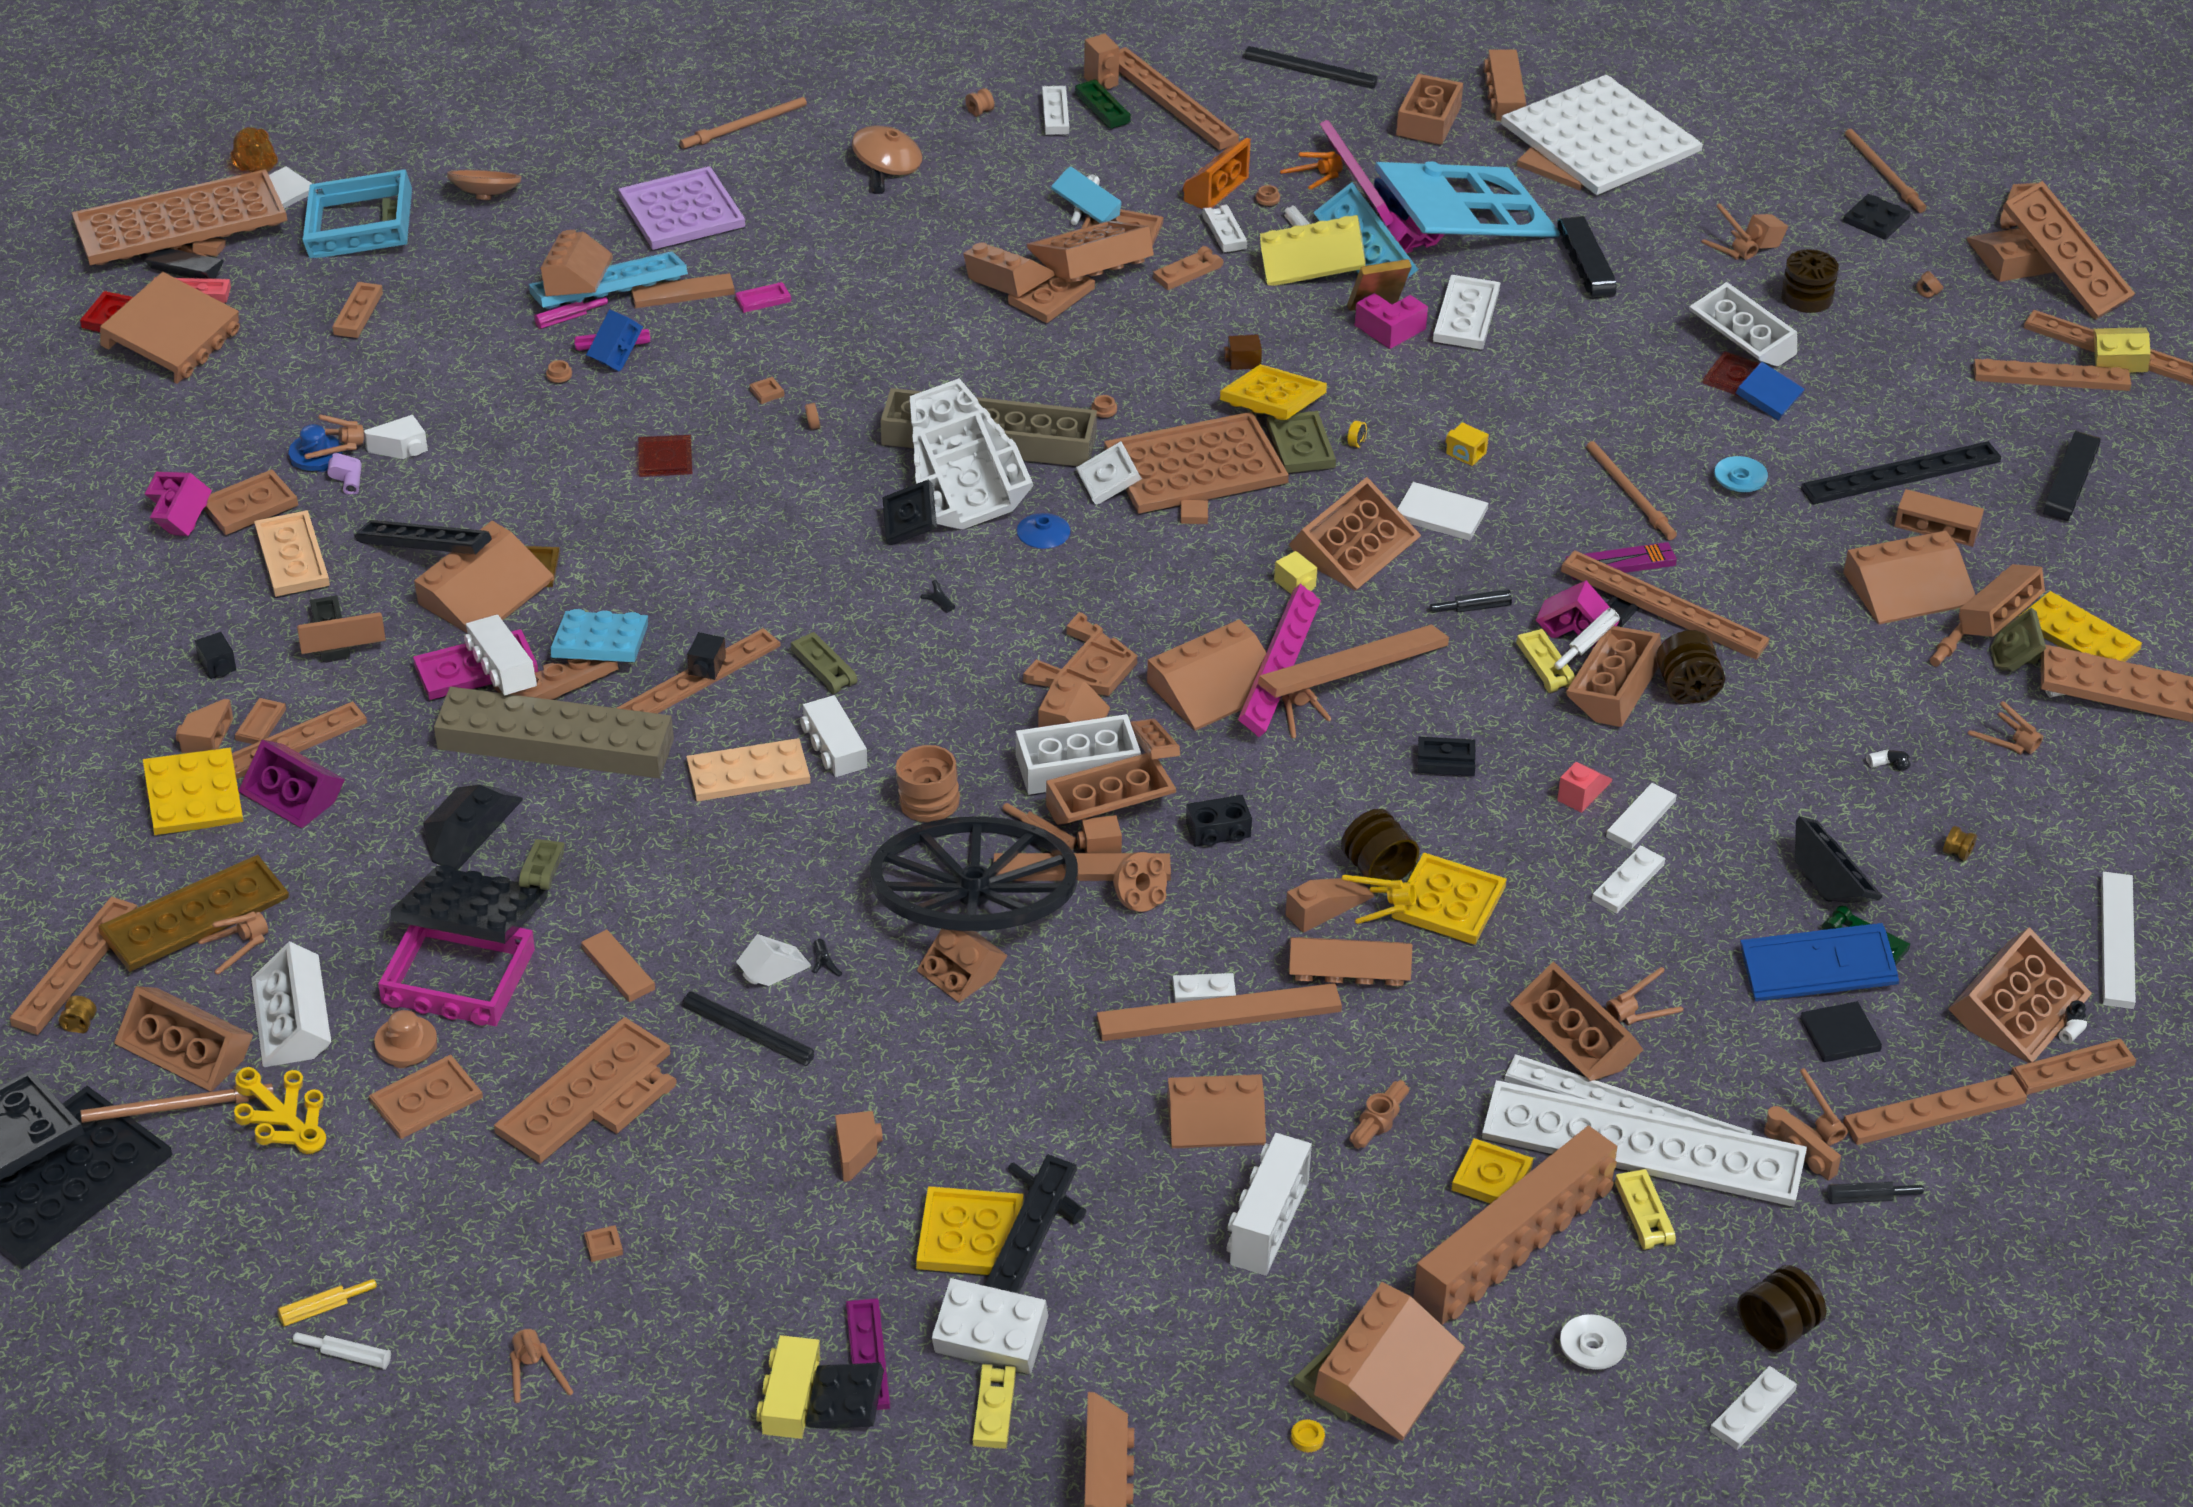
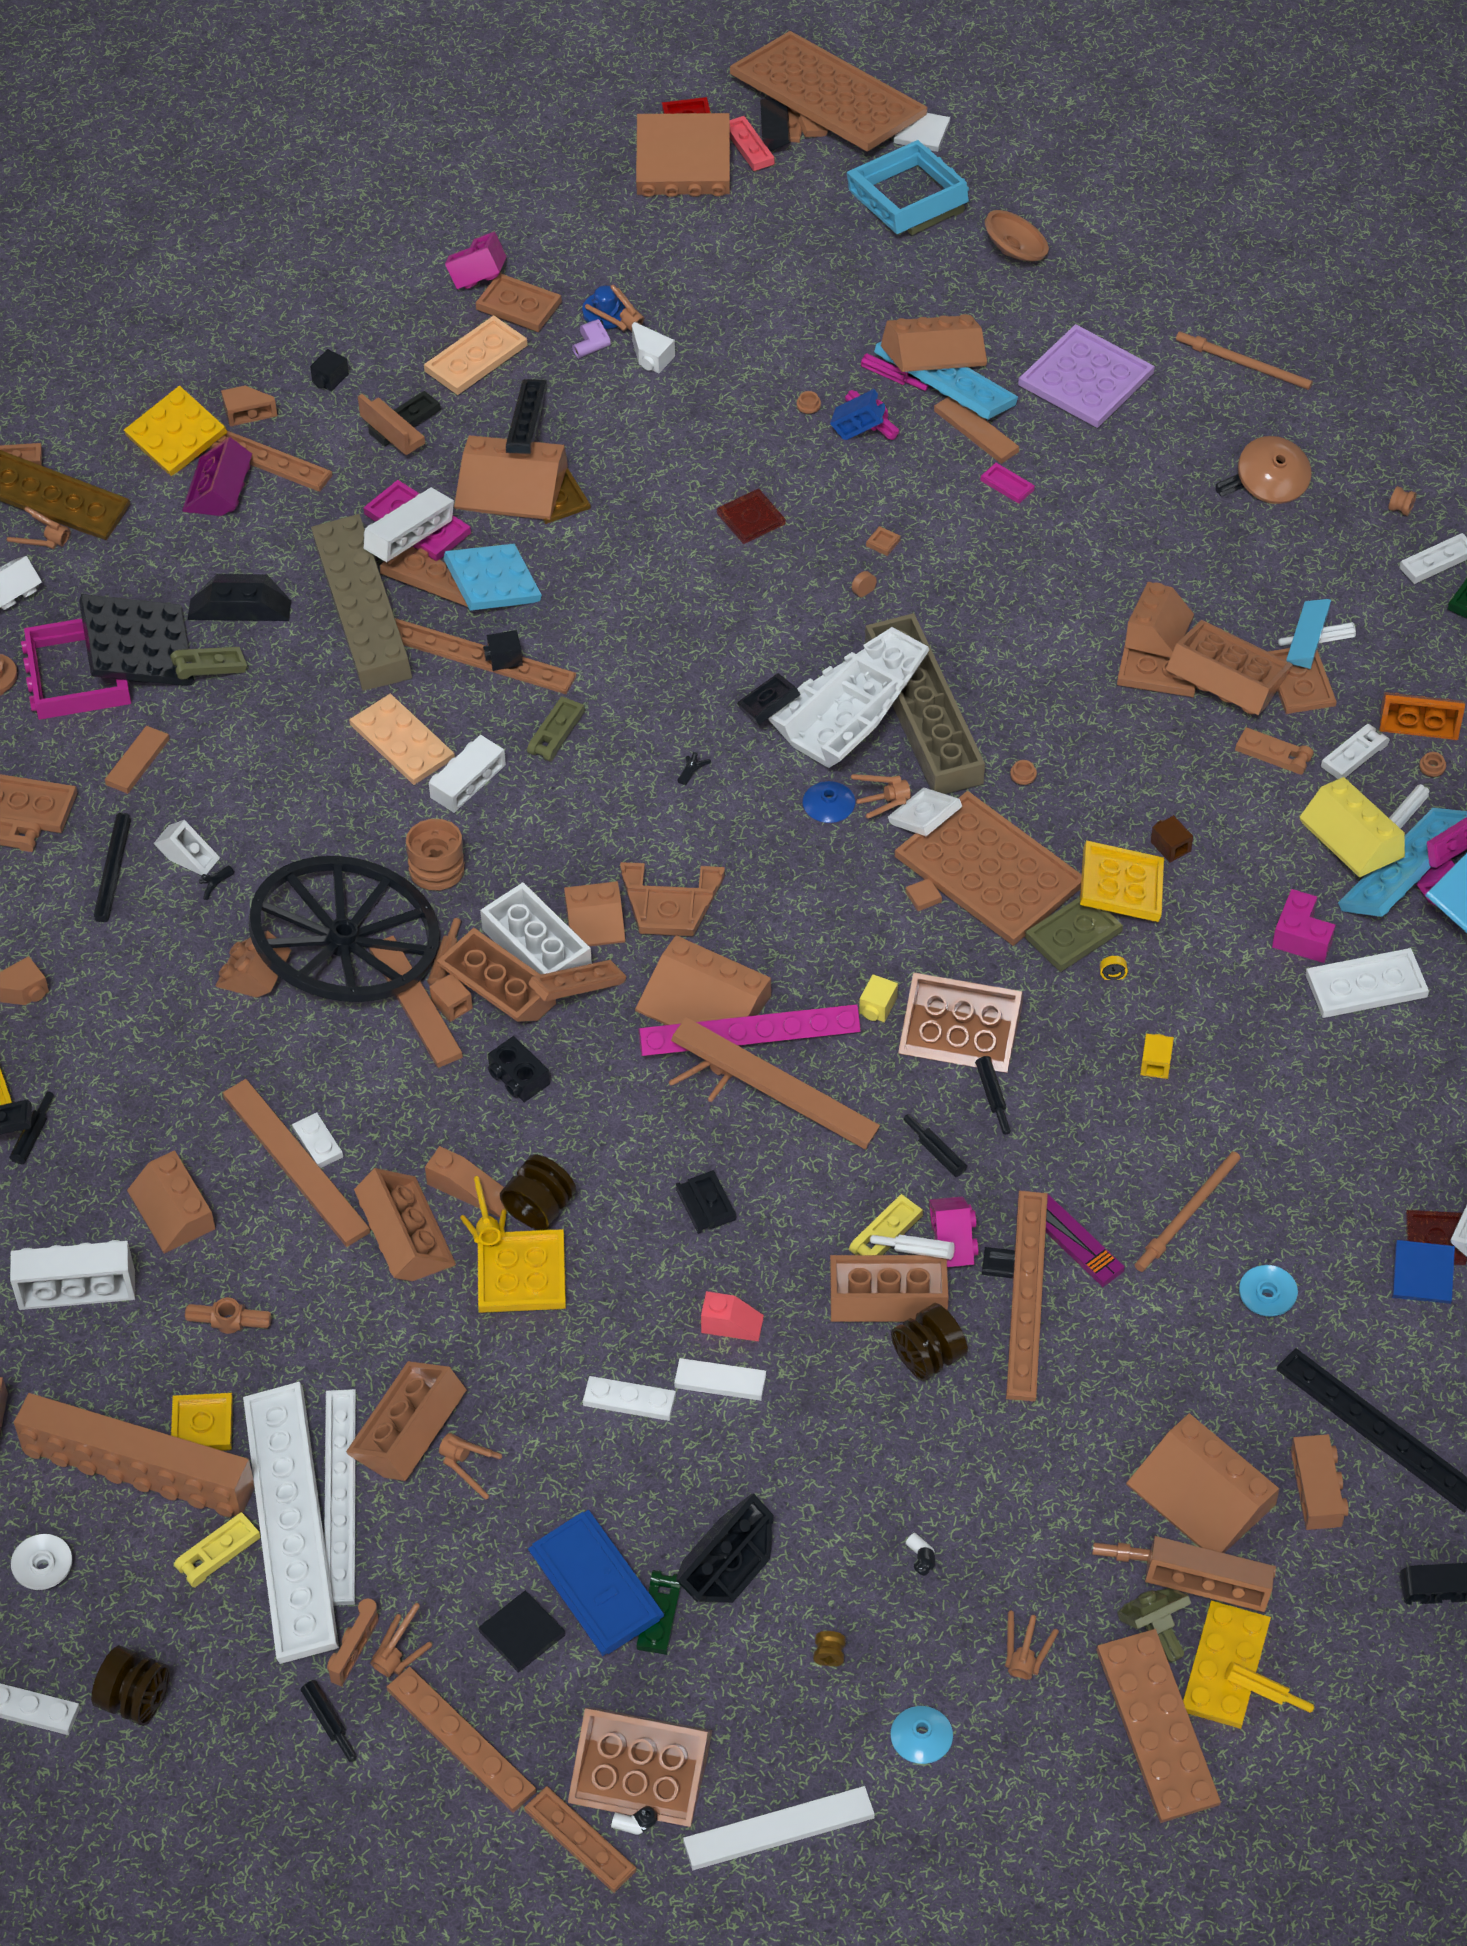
camera: 65 degrees right, 10 degrees up
(253, 150) = (942, 88): clear orange plate -> none
(260, 721) = (280, 431): nougat tile -> none
(357, 309) = (796, 248): nougat plate -> none
(1072, 481) = (896, 791): none -> nougat plant
(1141, 881) = (402, 1043): nougat plate -> none
(1382, 279) = (1326, 894): pearl gold tile -> none
(1439, 547) = (993, 1091): none -> black axle
(1442, 511) = (1051, 1074): white tile -> none
(2063, 825) = (921, 1747): none -> medium azure dish
(2116, 614) = (1264, 1686): none -> yellow axle

